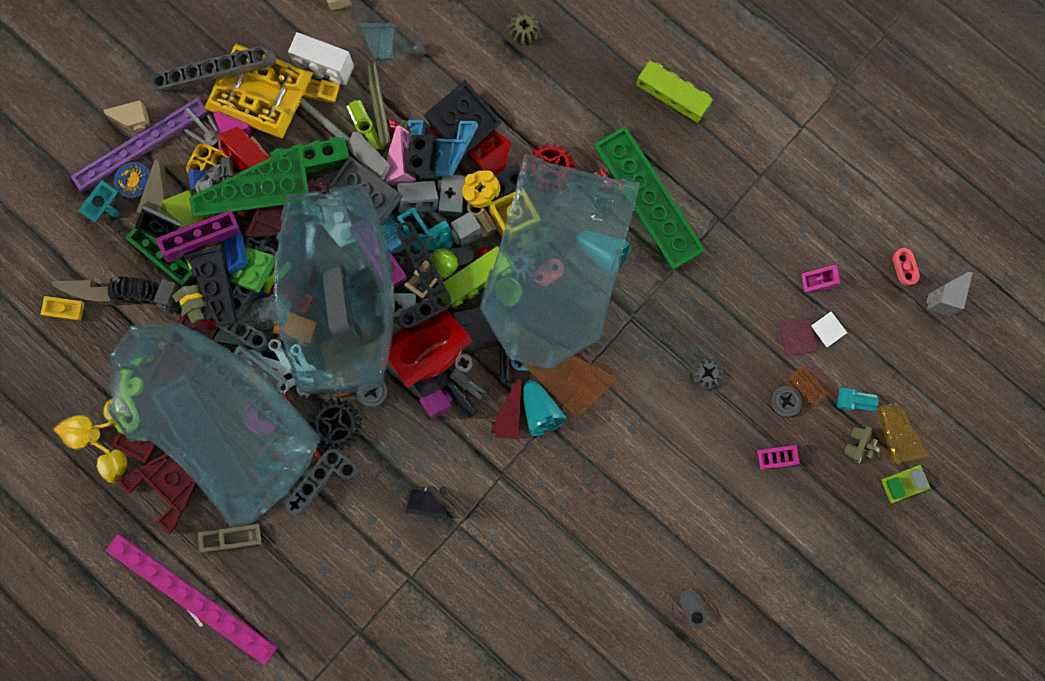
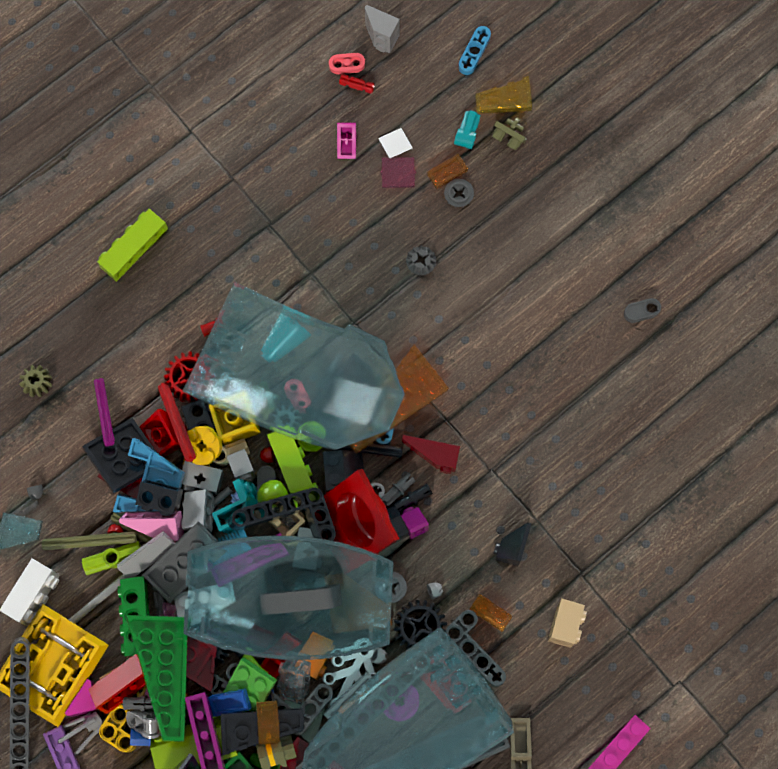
camera: 80 degrees left, 5 degrees down
(217, 289) = (267, 722): none -> clear orange slope
(322, 90) = (62, 597): yellow slope -> none
(353, 567) = (566, 623): none -> tan brick
(358, 492) = (491, 612): none -> clear orange plate
(374, 434) = (434, 590): none -> light grey hinge
(498, 160) = (177, 422): none -> red axle
(502, 94) = (104, 413): none -> magenta axle
(540, 409) = (433, 421): teal cone -> none
(653, 202) = (262, 275): green plate -> none
(793, 448) = (513, 194): dark pink slope -> none
(886, 280) = (356, 83): none -> red axle
(905, 484) = (550, 102): piece -> none
(958, 405) = (474, 43): none -> dark azure beam

